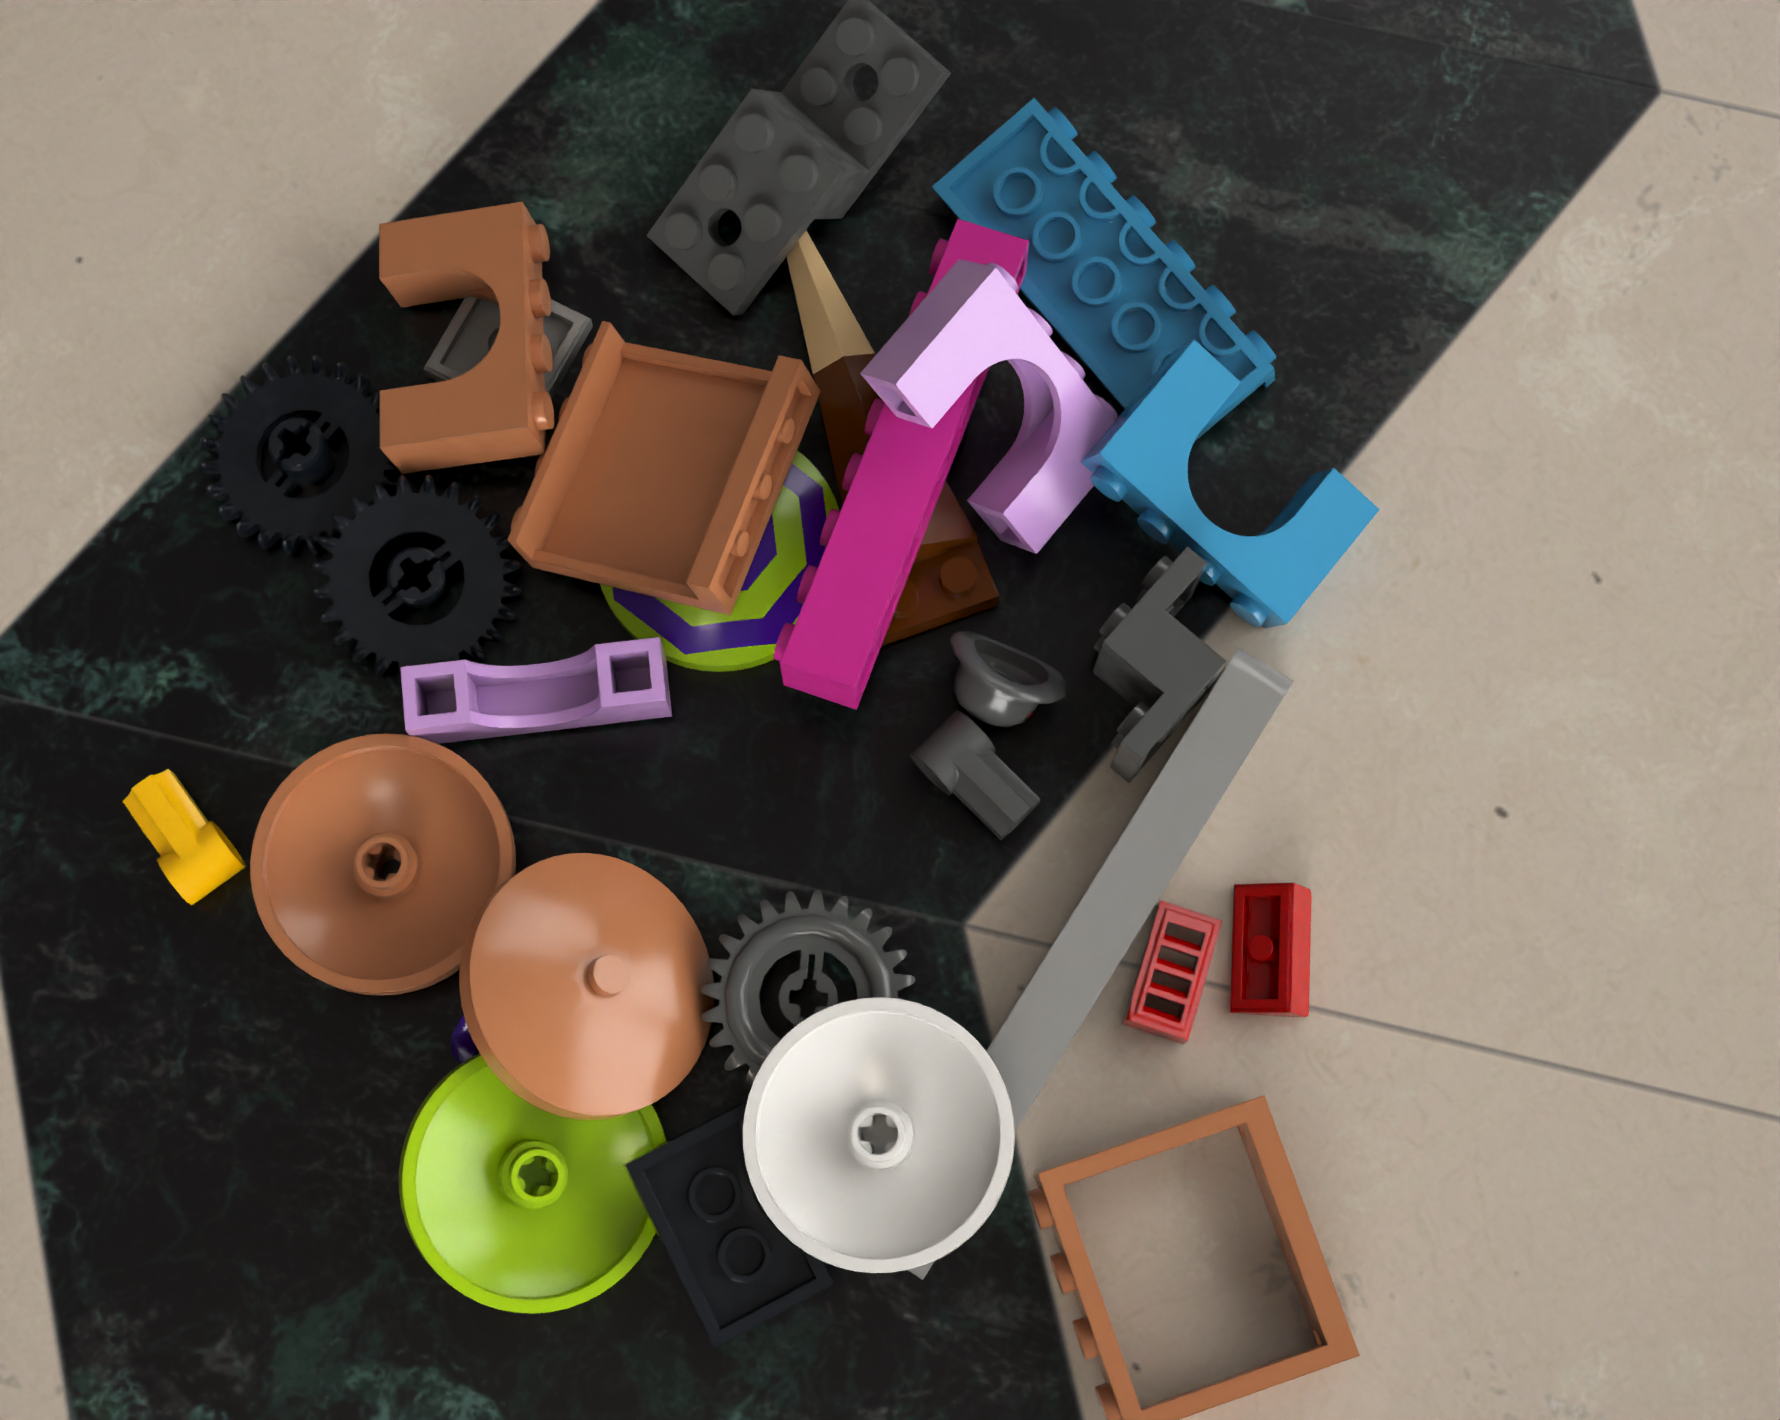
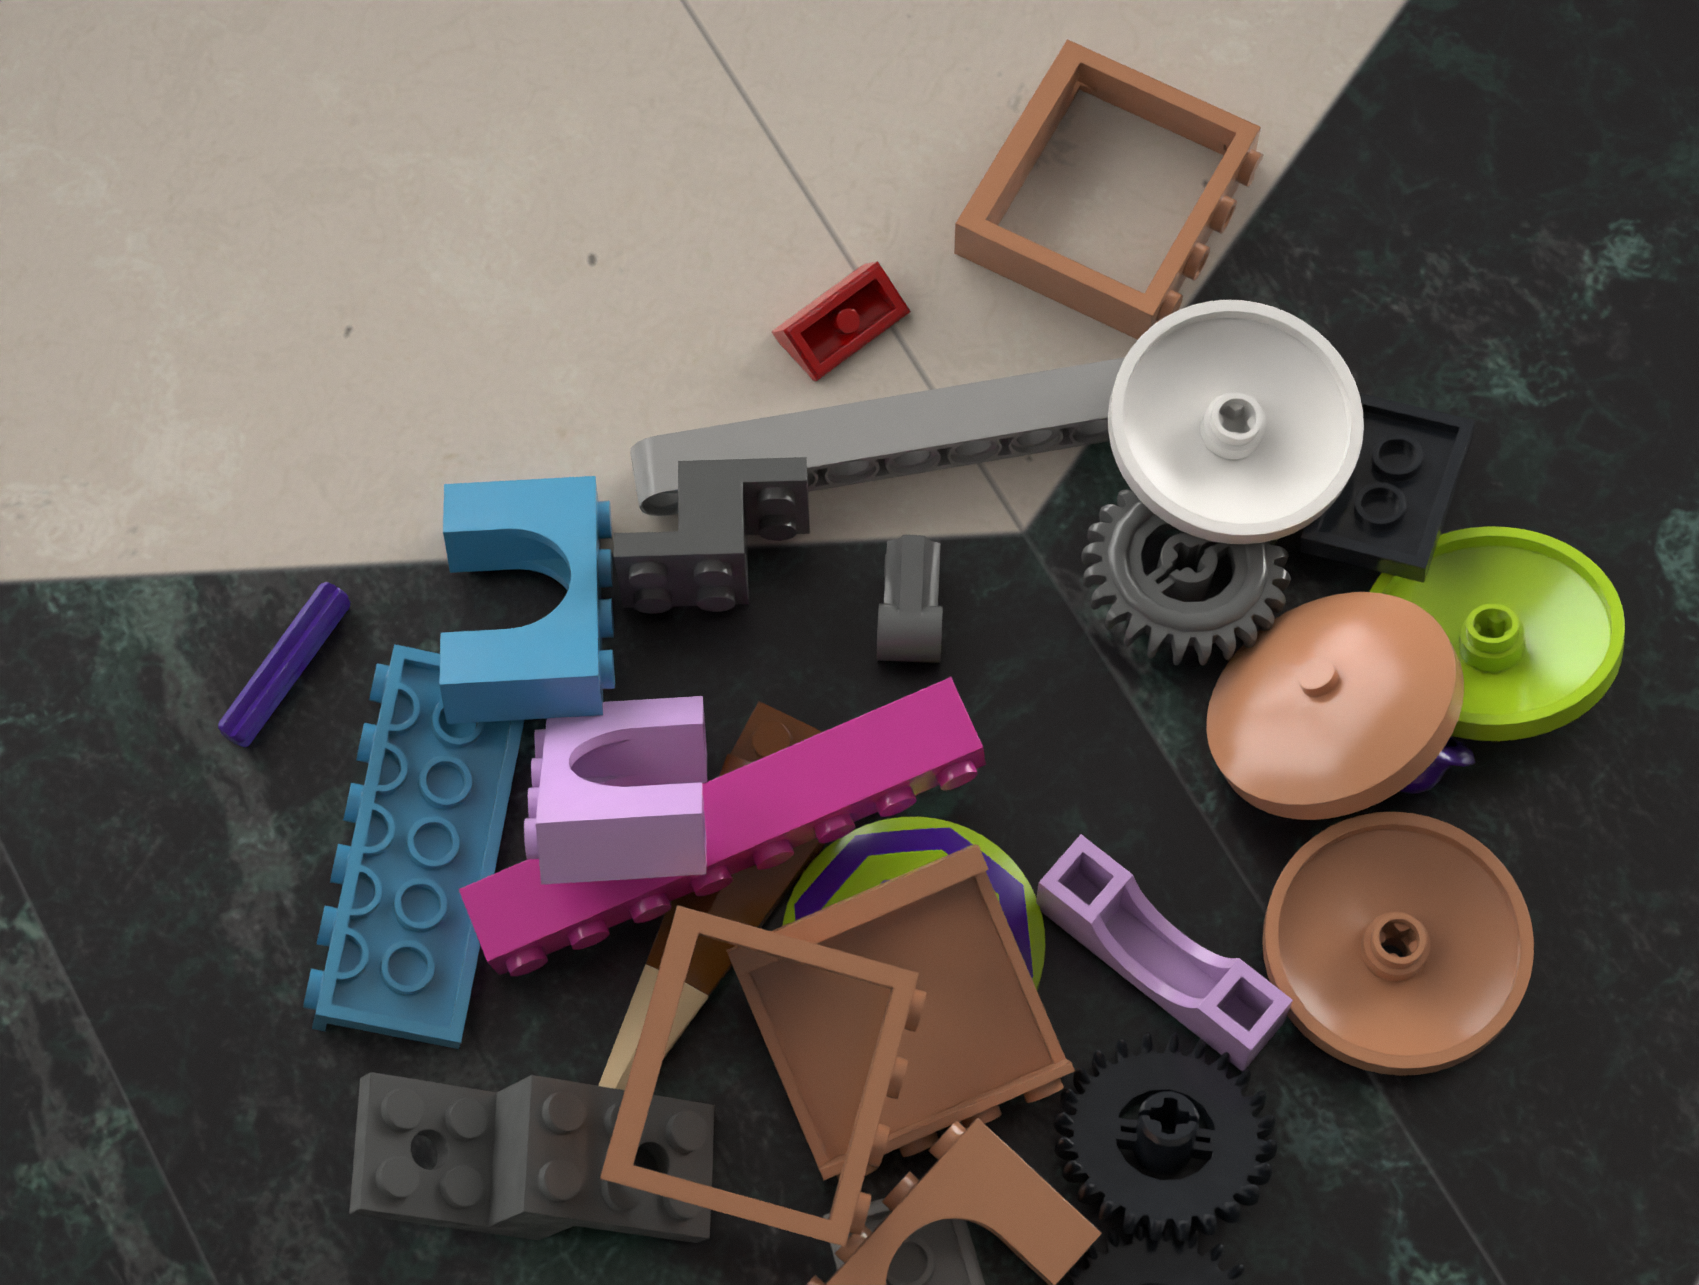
camera: 130 degrees left, 10 degrees down
(192, 850) = (1531, 1105): yellow piece -> none
(746, 388) = (883, 1079): none -> nougat window
(1000, 681) = (820, 637): dark grey hat -> none
(1155, 1021) = (936, 336): red slope -> none
(1339, 306) = (284, 664): none -> dark purple axle

